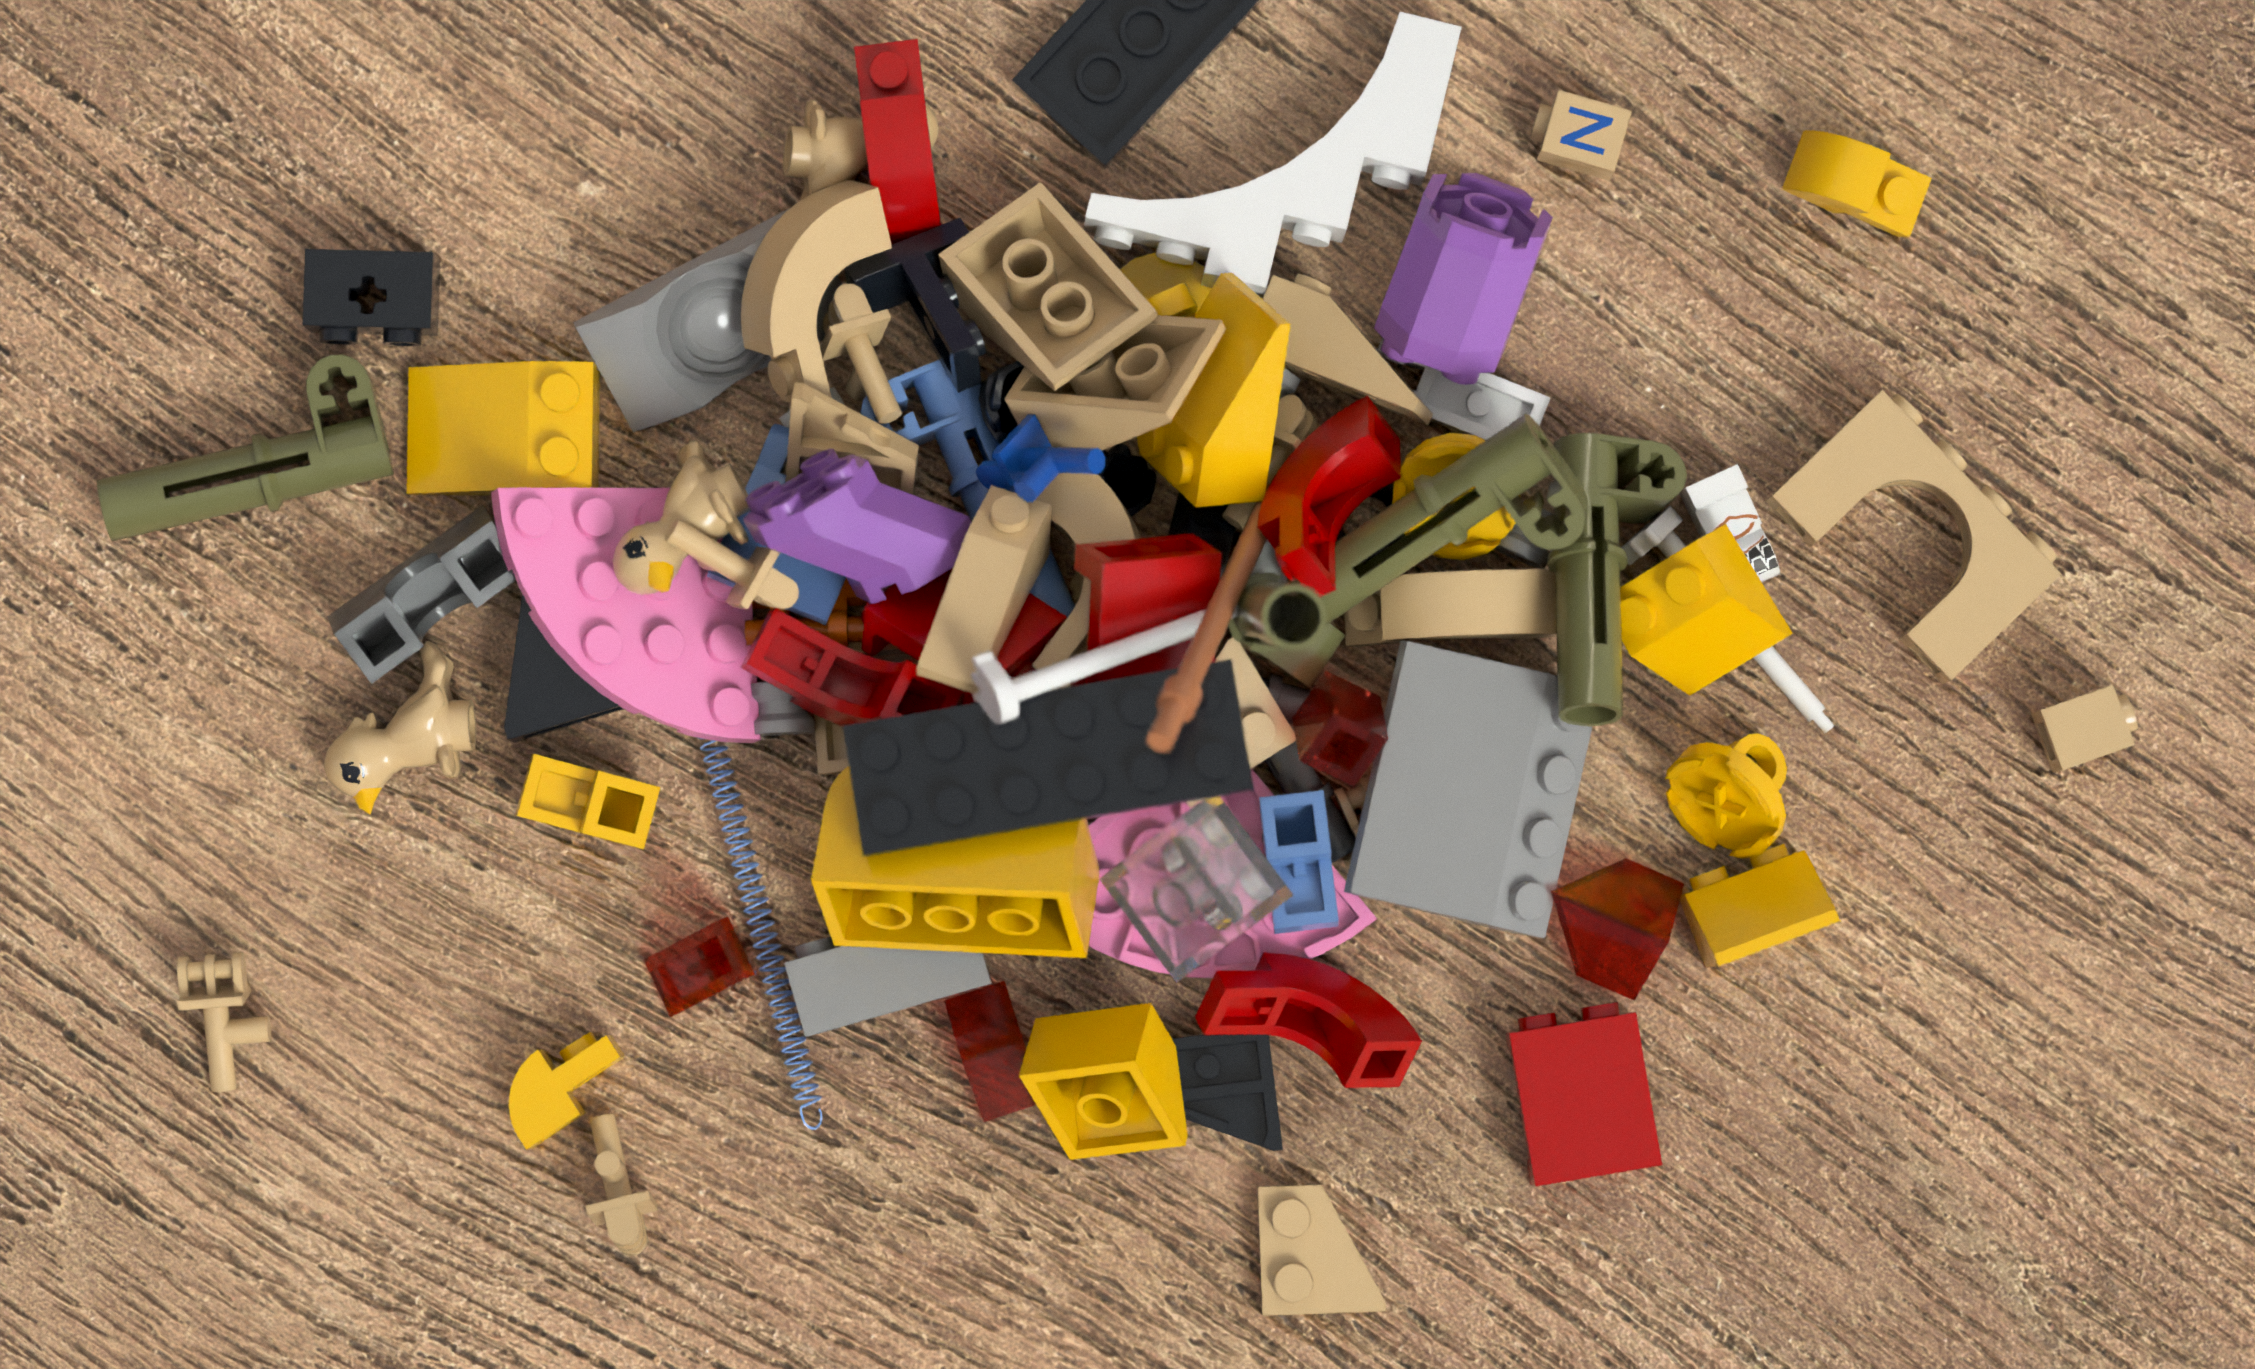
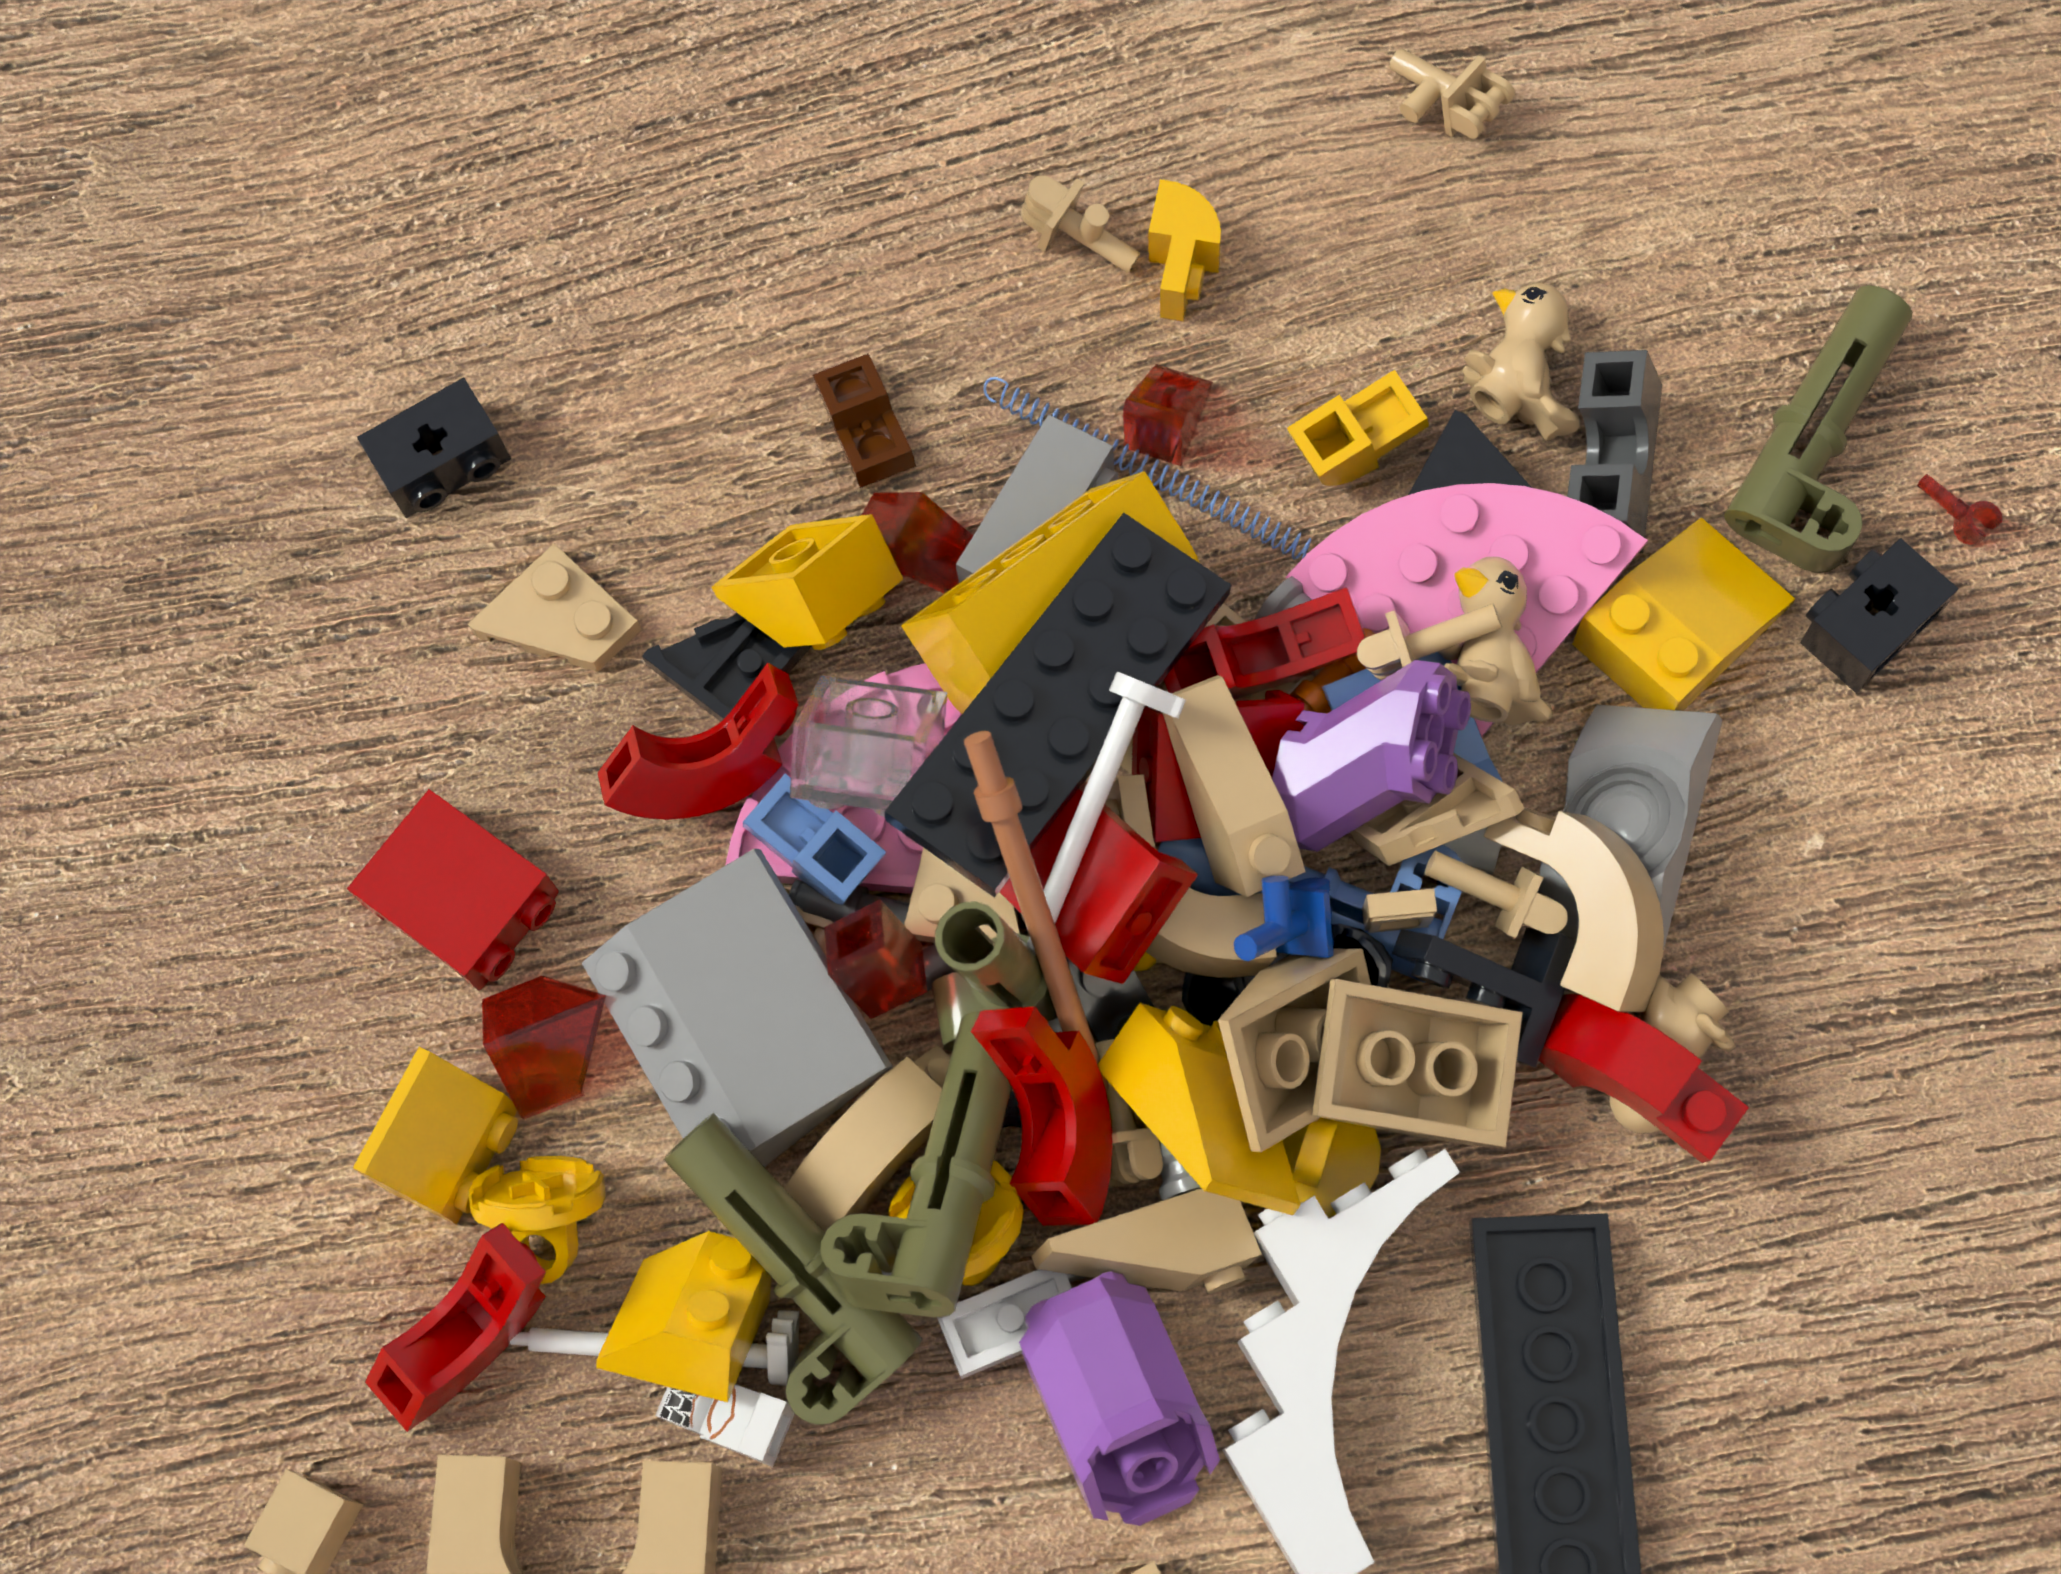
camera: 145 degrees right, 15 degrees down
(219, 314) = (1963, 525): none -> clear red hand
(934, 1189) = (864, 420): none -> reddish brown slope
(948, 403) = (1399, 910): none -> tan tile
(1863, 757) = (462, 1331): none -> red arch

